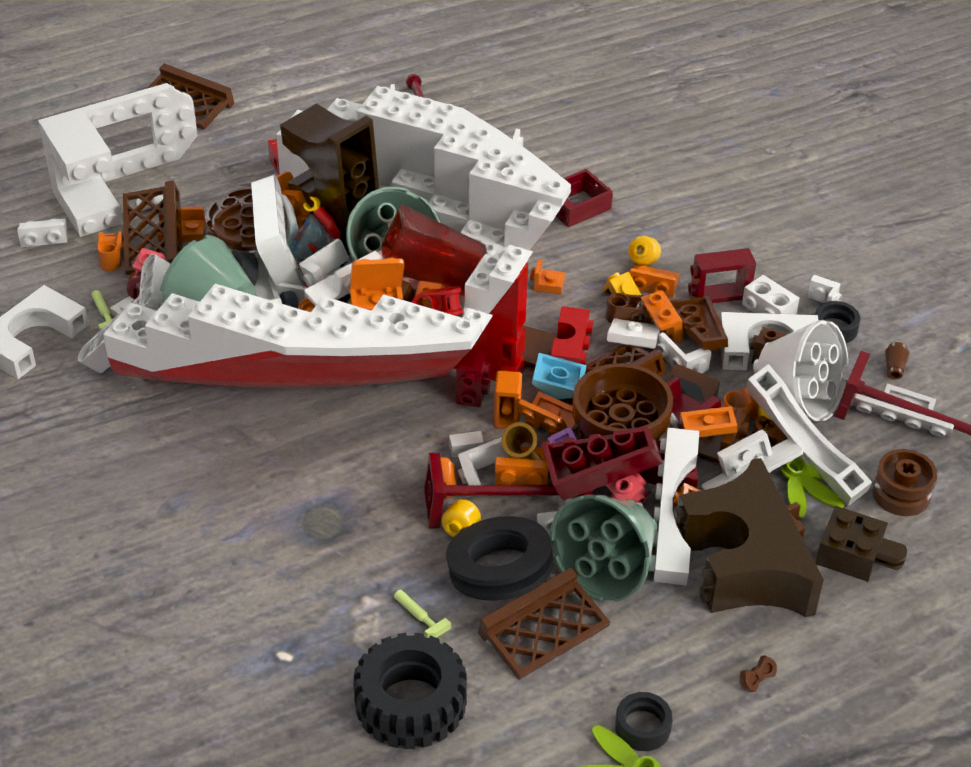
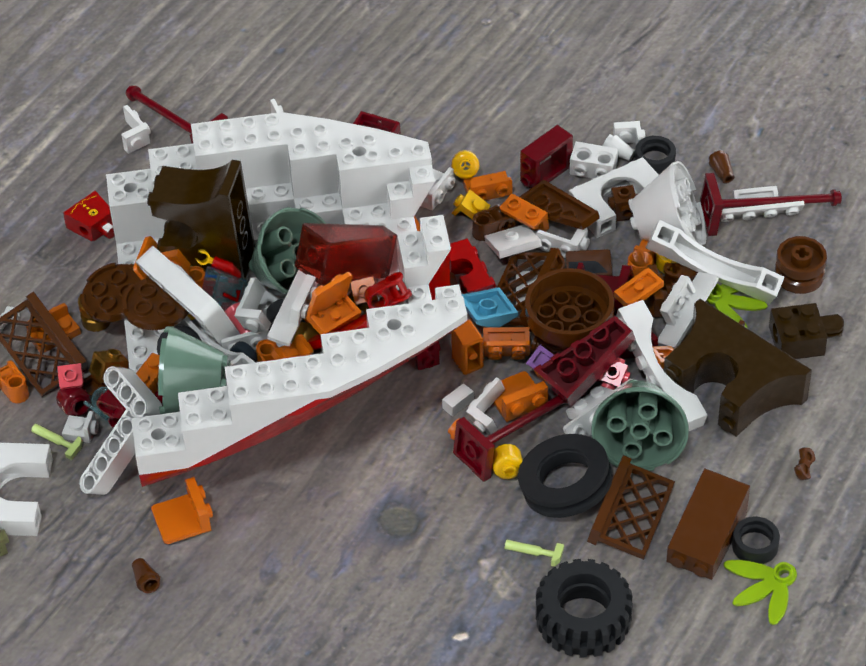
camera: 30 degrees left, 5 degrees up
(63, 454) = (145, 576): none -> reddish brown cone
(141, 421) = (183, 515): none -> orange bracket
(515, 436) = (520, 373): pearl gold piece -> none
(601, 260) = (443, 183): none -> white bracket
(601, 675) = (708, 524): none -> reddish brown slope
(806, 299) = (624, 149): none -> white cone

